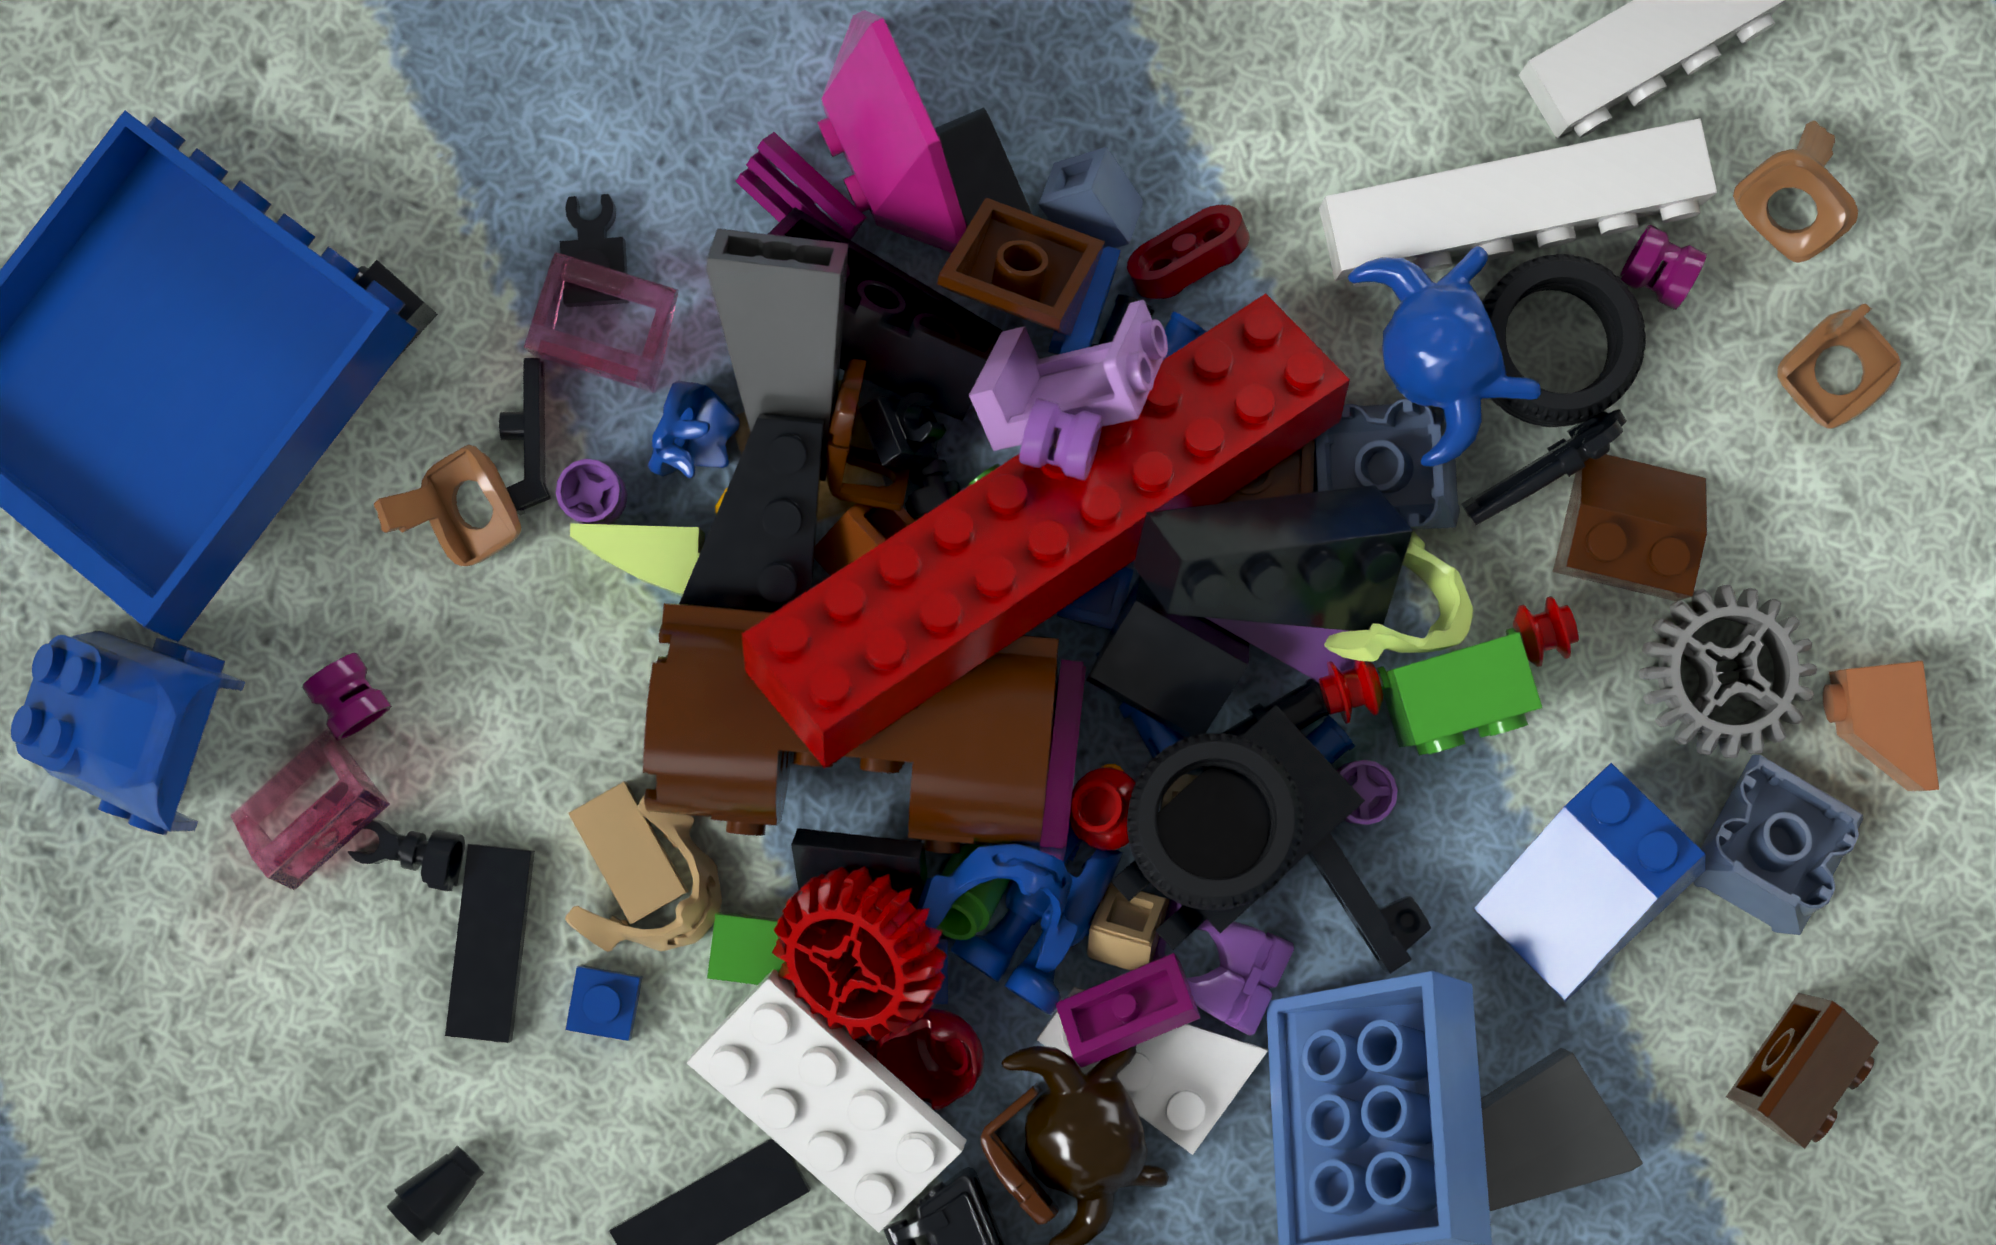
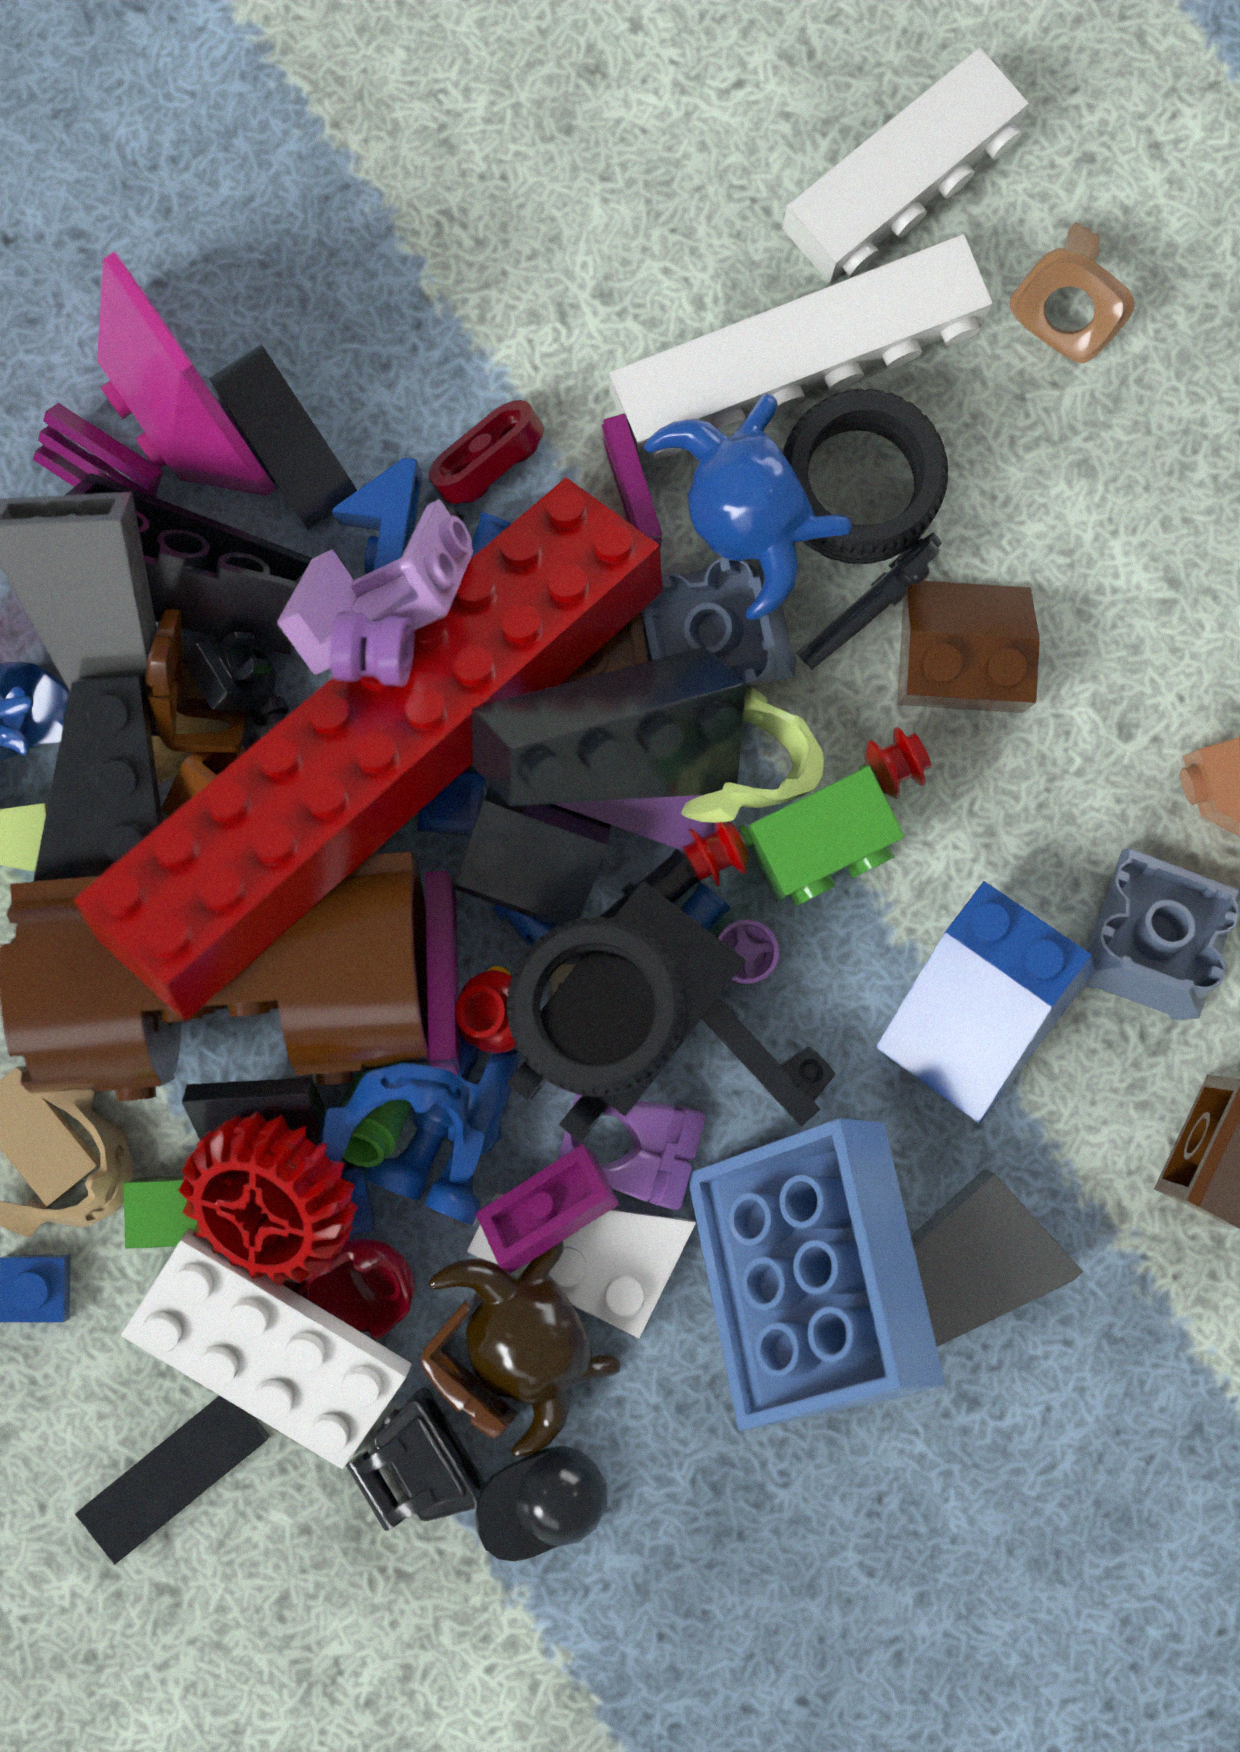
camera: 10 degrees left, 0 degrees up
(1023, 266) = (319, 490): reddish brown slope -> none
(1092, 197) = (383, 419): sand blue panel -> none
(1125, 930) = (532, 1128): tan slope -> none
(1327, 302) = (629, 476): none -> magenta tile
(1674, 275) = (966, 392): magenta wheel -> none
(1751, 684) = (1109, 781): light grey gear -> none
(1849, 330) = (1145, 420): medium nougat piece -> none

